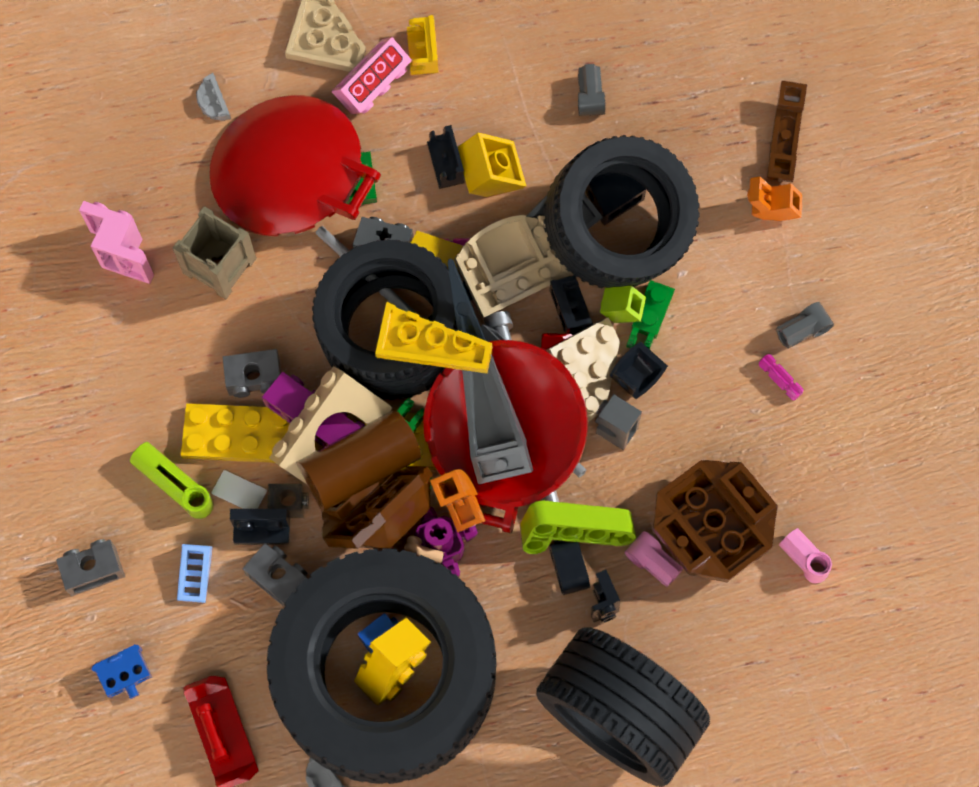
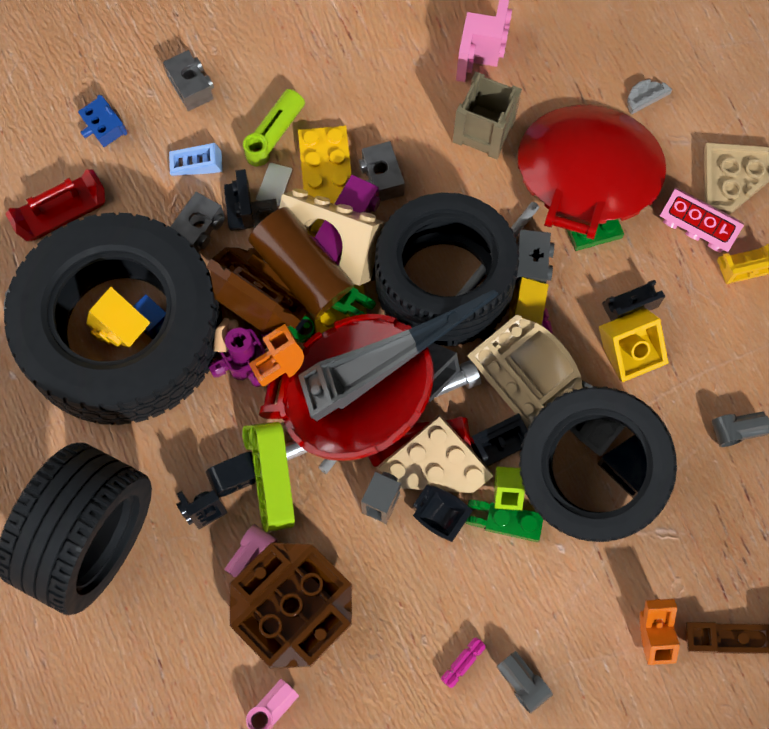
camera: 80 degrees right, 0 degrees up
(421, 341) = (412, 289): yellow wing -> none

